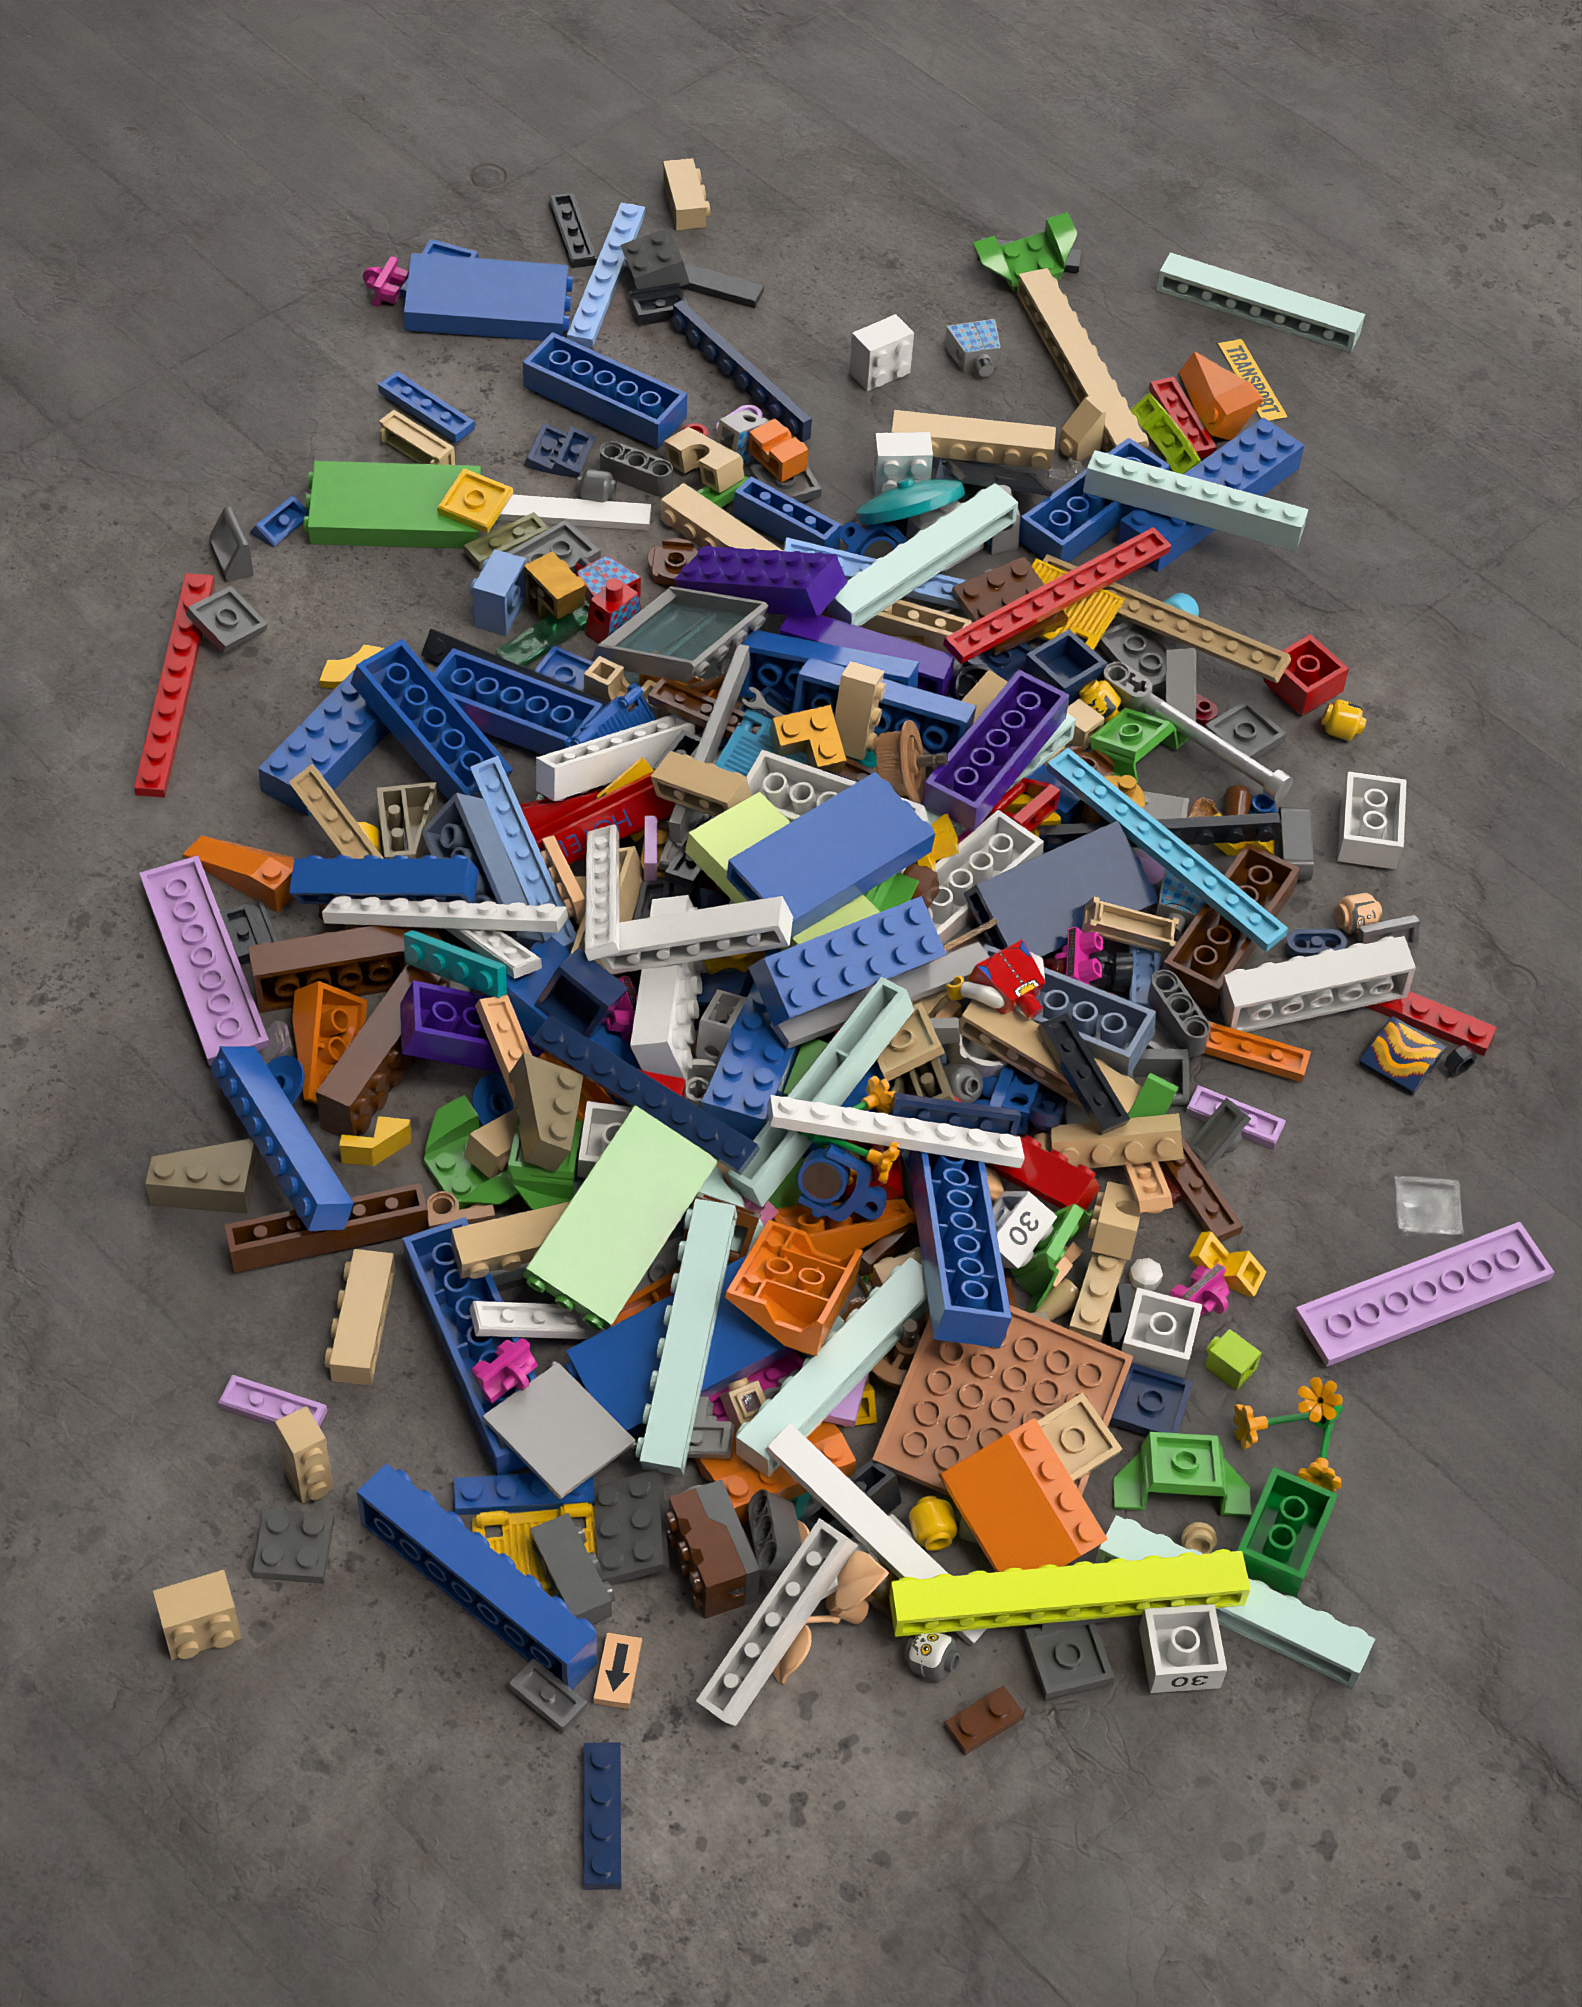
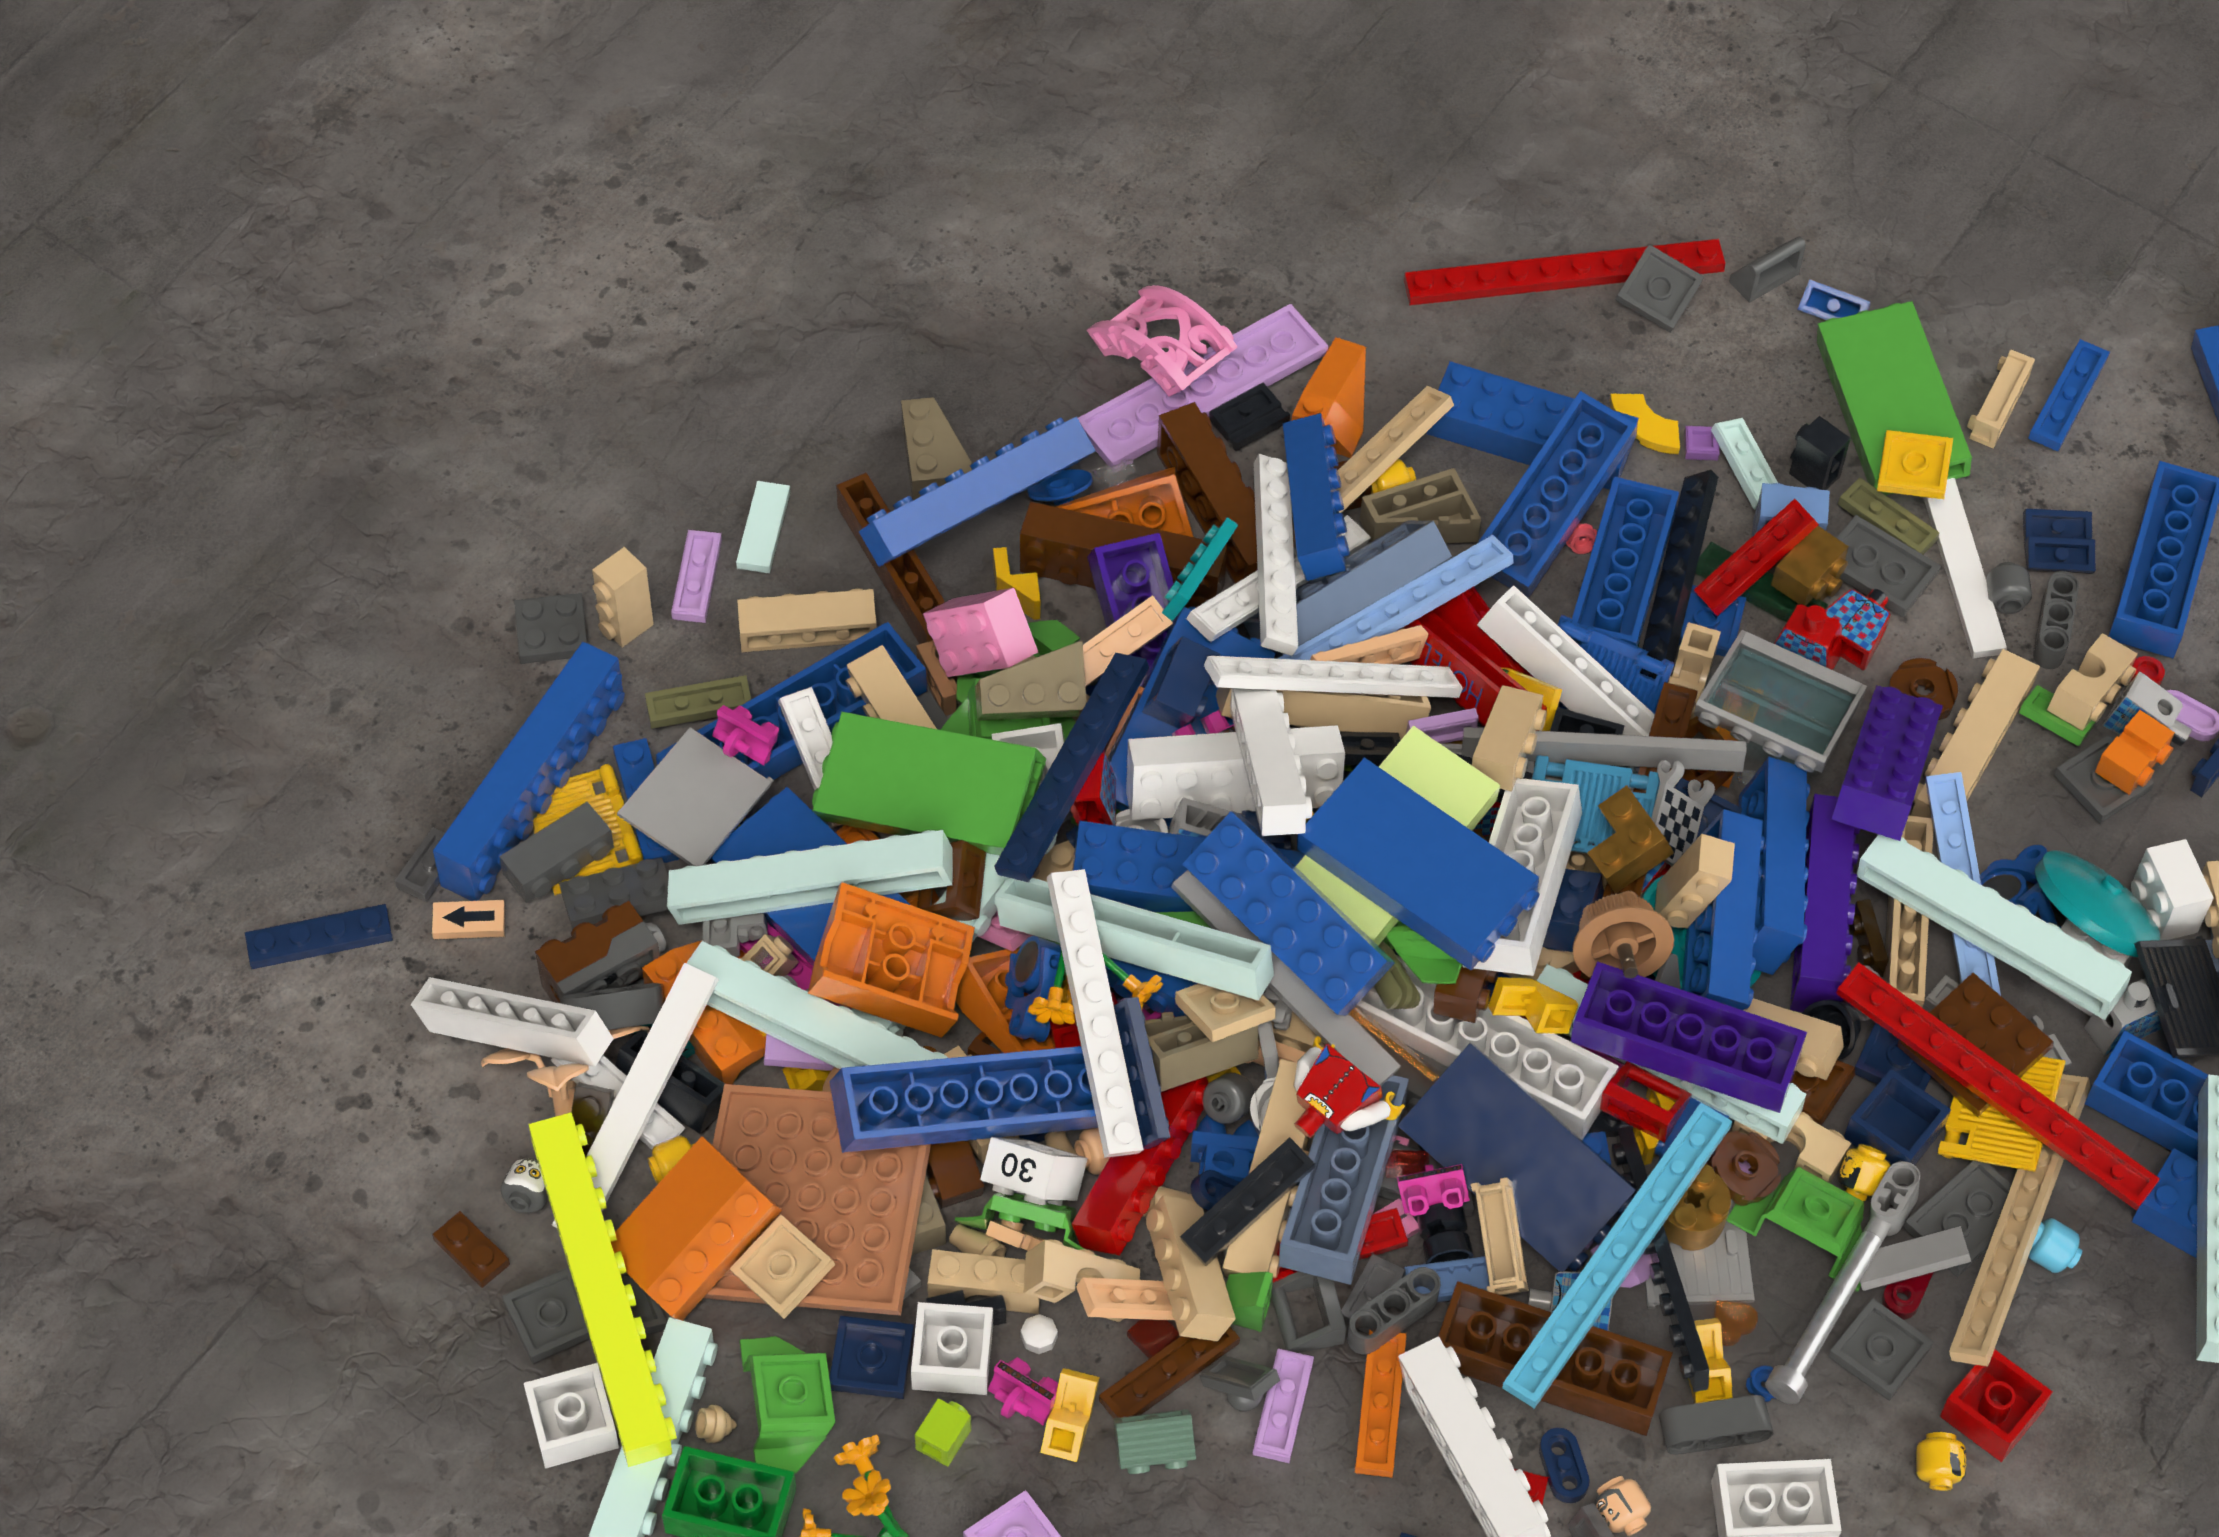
camera: 80 degrees right, 5 degrees up
(157, 934) = (1166, 368): none -> bright pink fence
(197, 1615) = (449, 562): tan brick -> none
(235, 1339) = (763, 527): none -> light aqua tile
(387, 634) = (1700, 443): none -> medium lavender tile
(422, 611) = (1743, 457): none -> light aqua tile
(426, 1426) = (695, 701): none -> olive plate
(440, 558) = (1819, 454): none -> black brick
(460, 1150) = (980, 632): none -> bright pink brick
(537, 614) = (1756, 557): none -> red plate
(783, 515) = (2029, 786): blue brick -> none
(1237, 800) = (1752, 1352): reddish brown cone -> none
(1263, 1204) = (1154, 1440): none -> sand green brick

